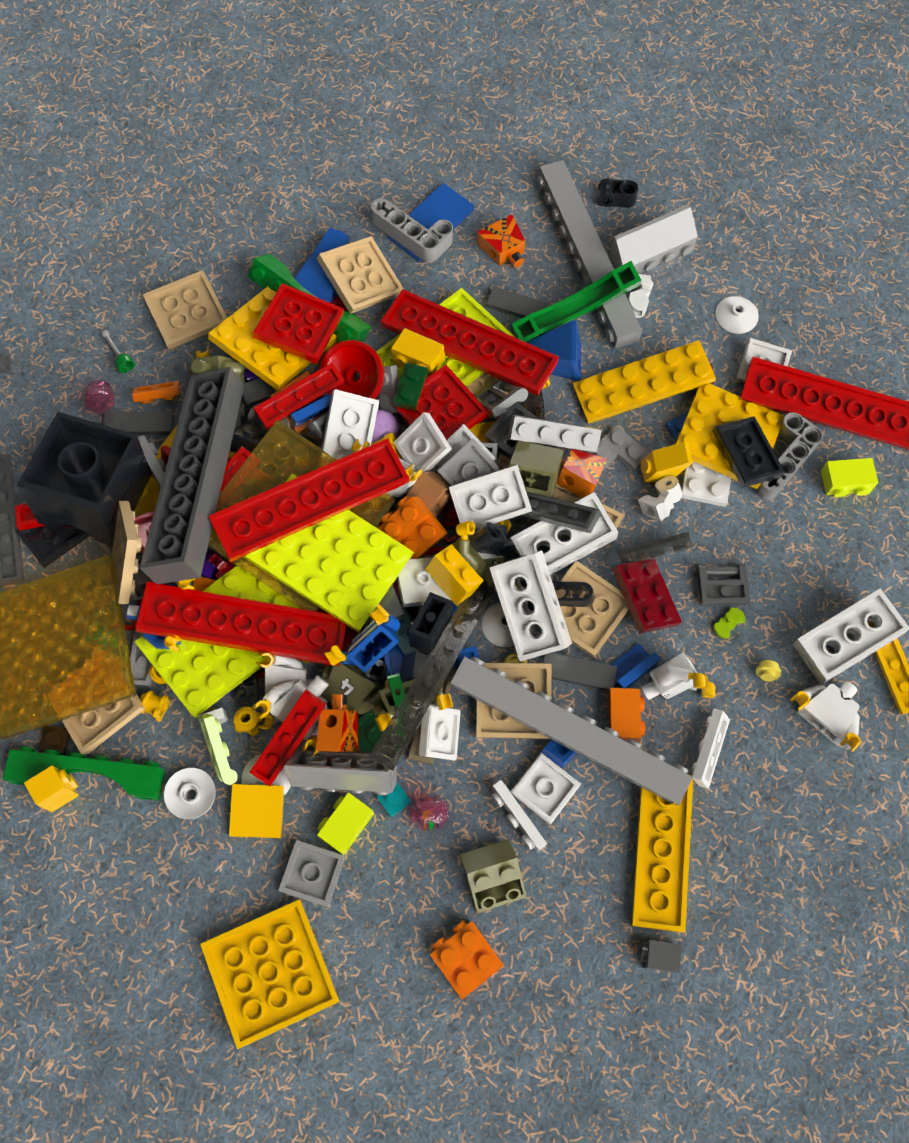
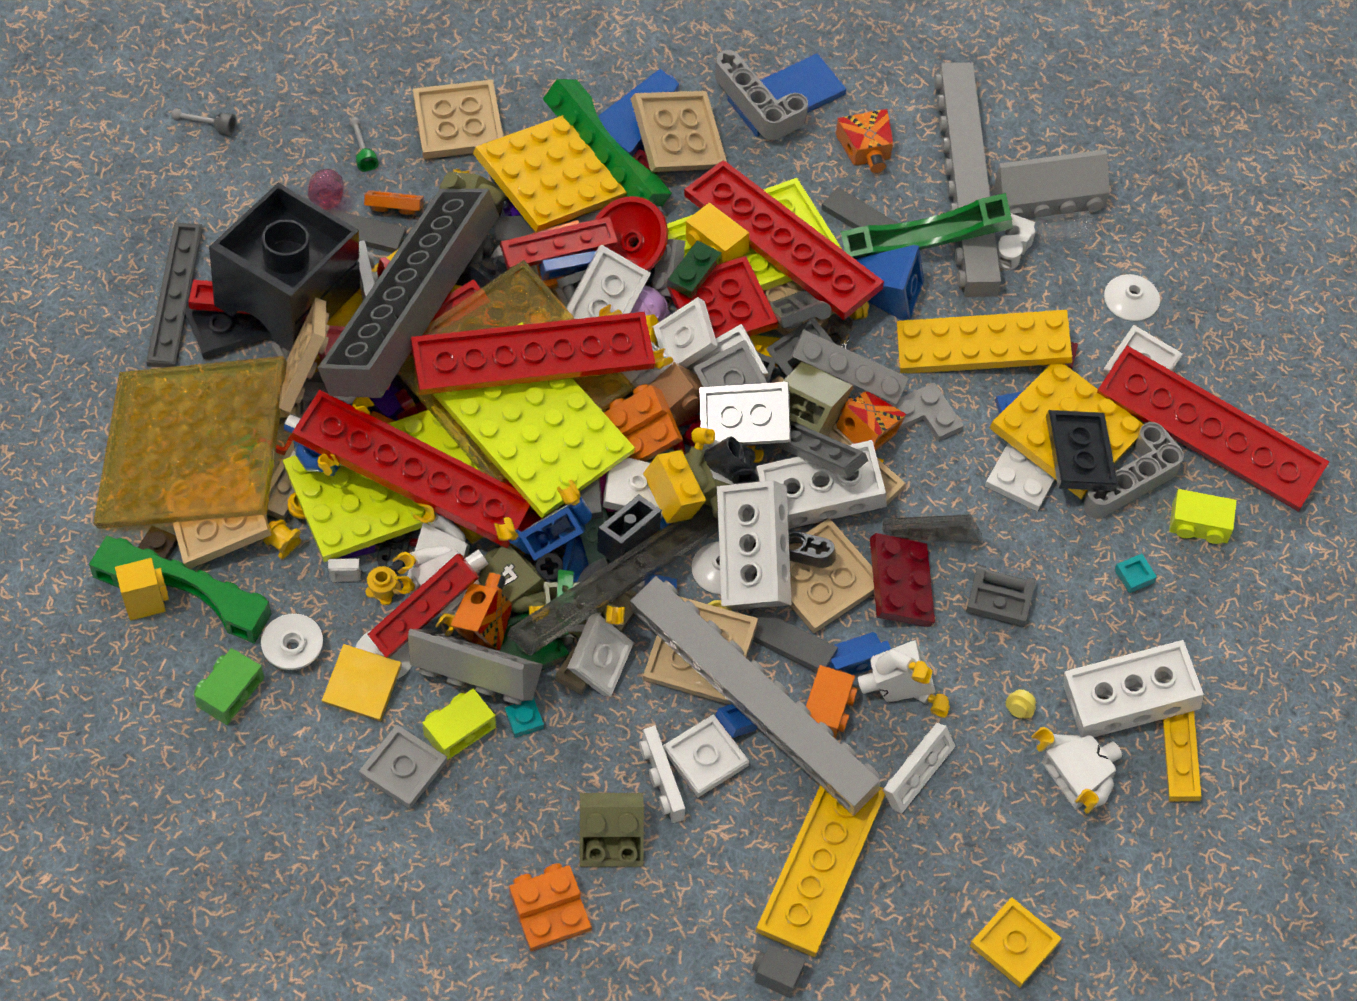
camera: 15 degrees right, 10 degrees down
(149, 848) = (228, 686): none -> bright green brick
(217, 749) = (338, 601): yellowish green plate -> none
(269, 973) = (320, 855): yellow plate -> none
(298, 323) = (584, 163): red plate -> none
(429, 813) = (560, 740): clear pink head -> none
(620, 193) = (1031, 119): black piece -> none
(666, 462) = (975, 437): yellow slope -> none
(668, 492) = (969, 474): white leg -> none
(728, 623) = (993, 640): lime piece -> none
(815, 537) = (1135, 573): none -> teal plate
(830, 871) = (1015, 942): none -> yellow plate

